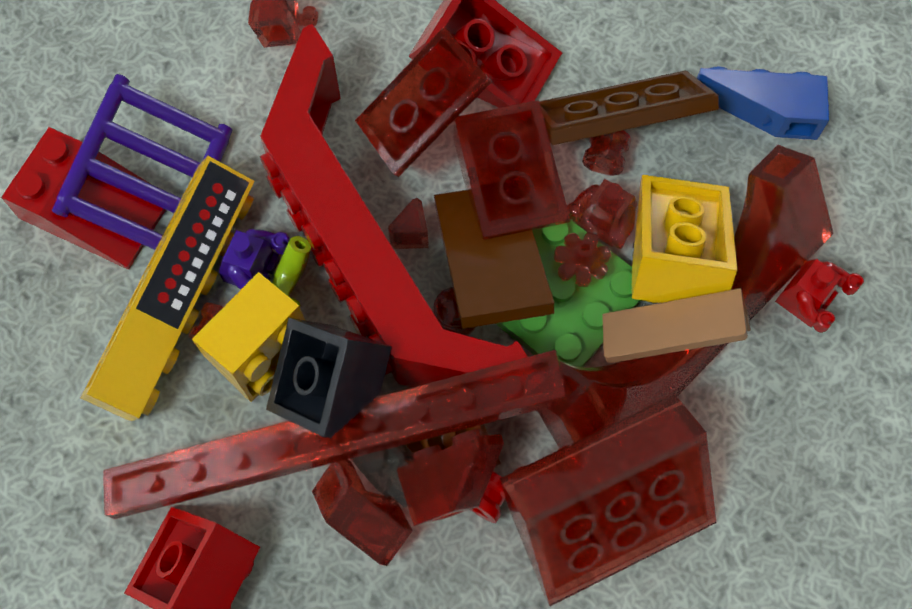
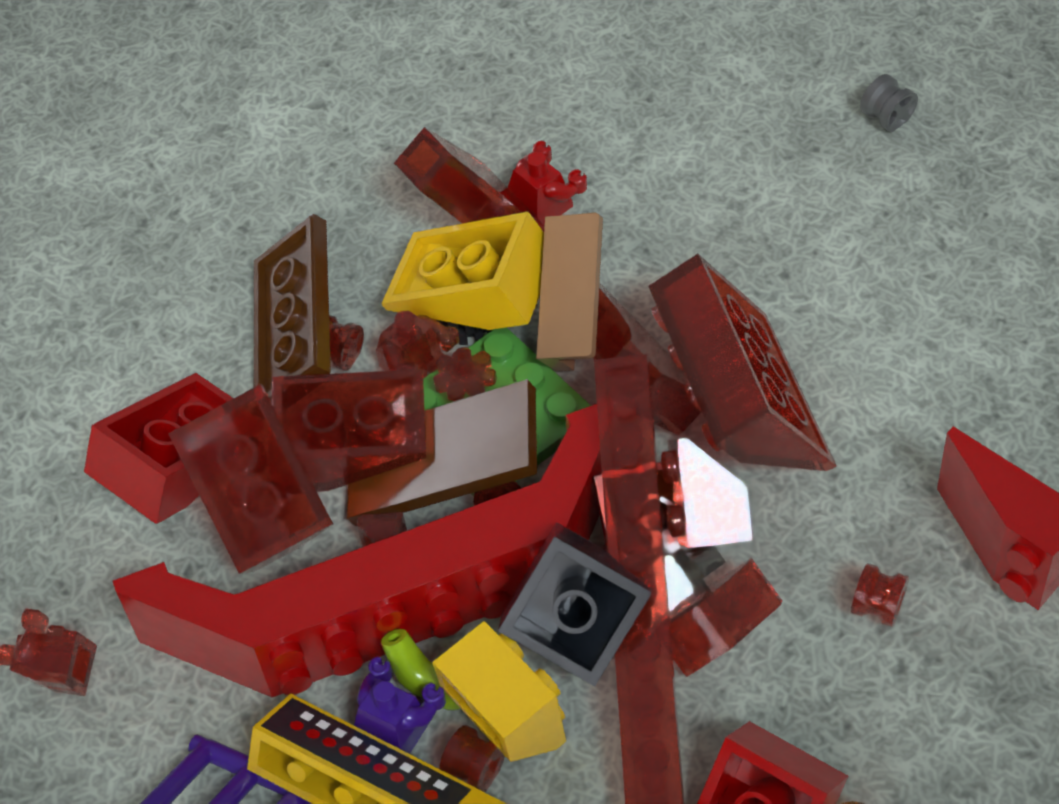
camera: 75 degrees left, 15 degrees down
(772, 101) = (320, 183): blue slope -> none

